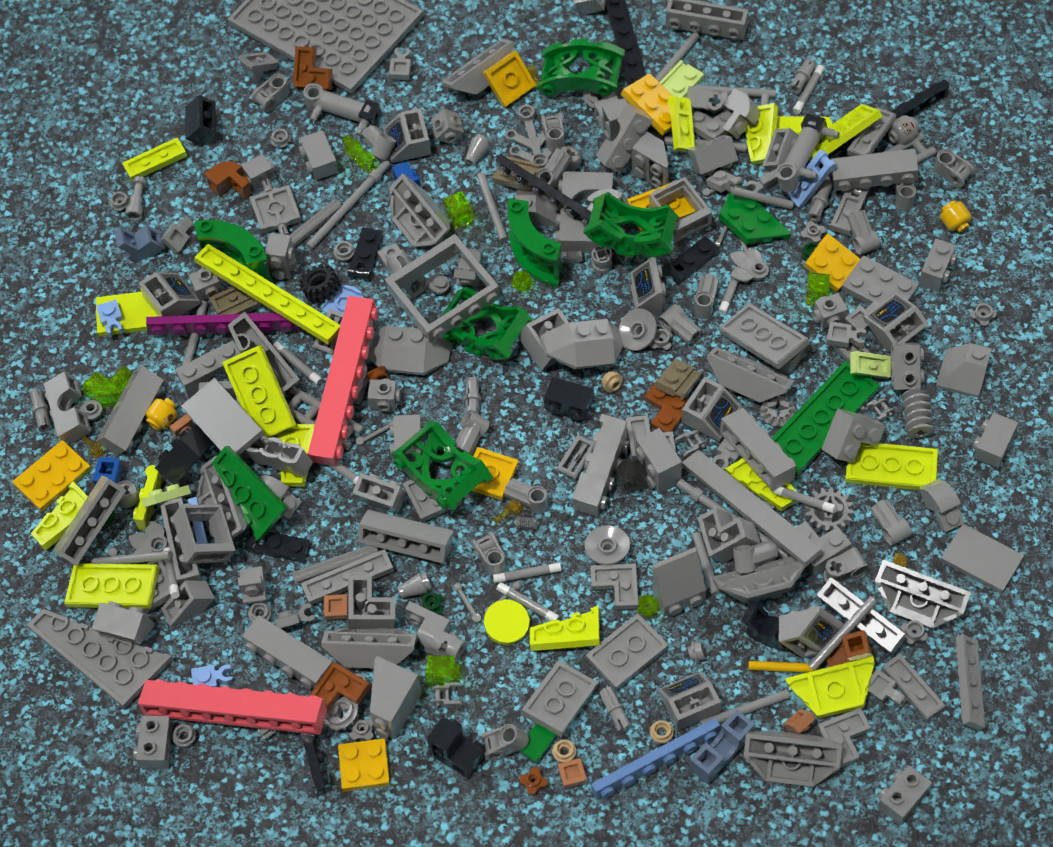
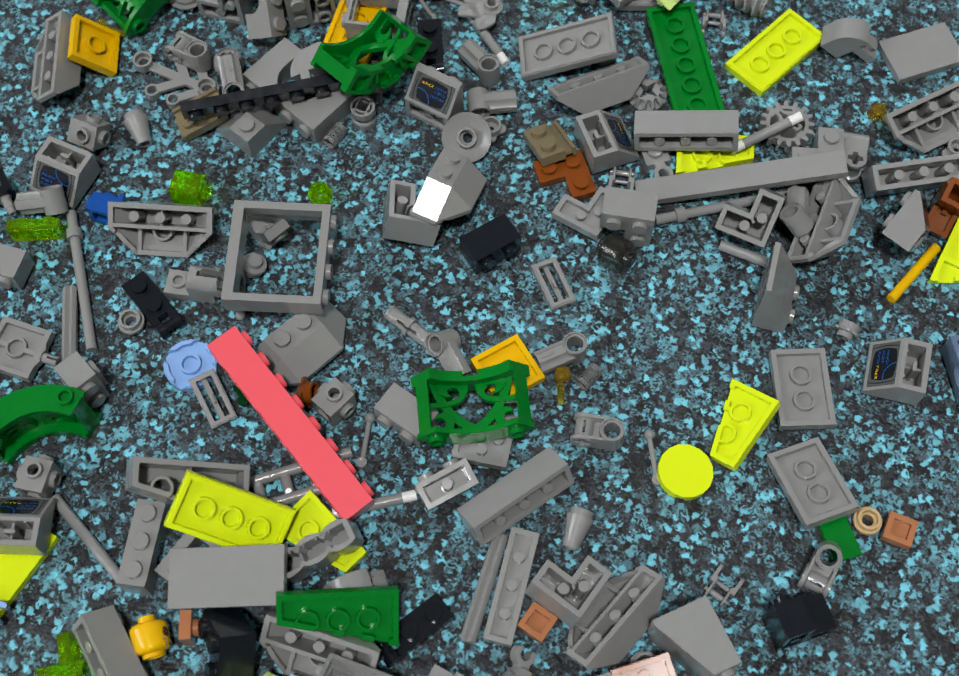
camera: 55 degrees left, 5 degrees up
(215, 323) = (107, 492): magenta plate -> none
(233, 302) = (86, 466): dark tan plate -> none
(268, 294) = (116, 424): neon yellow plate -> none
(297, 363) = (224, 456): light grey bar -> none
(324, 290) = (137, 363): black tyre -> none
(434, 598) = (608, 518): dark green plate -> none
(435, 632) = (648, 547): light grey plate -> none
(441, 670) = (695, 570): clear neon green brick -> none
(476, 618) = (654, 496): light grey hinge -> none
(492, 207) = (213, 161): light grey bar -> none
(507, 320) = (347, 236): green fence -> none
(527, 602) = (677, 437): light grey bar -> none
(528, 572) = (642, 415): light grey bar -> none
(530, 248) = (324, 147): green fence -> none
(534, 787) = (873, 575): dark orange plate -> none
(601, 466) = (587, 267): light grey wedge -> none
(607, 537) = (679, 314): light grey dish -> none
(611, 381) = (501, 197): tan plate -> none
(615, 709) = (855, 442): light grey axle -> none
(621, 579) = (722, 338): light grey plate -> none
(647, 600) = (767, 331): clear neon green plate -> none
(650, 762) = (938, 455): medium blue plate -> none
(661, 725) = (911, 413): tan plate -> none
(750, 707) = (936, 324): light grey bar -> none
(762, 626) = (871, 256): black brick -> none
(845, 630) = (931, 199): light grey bar -> none
(848, 433) = (730, 54): light grey brick -> none
(892, 526) = (842, 91): light grey piece -> none

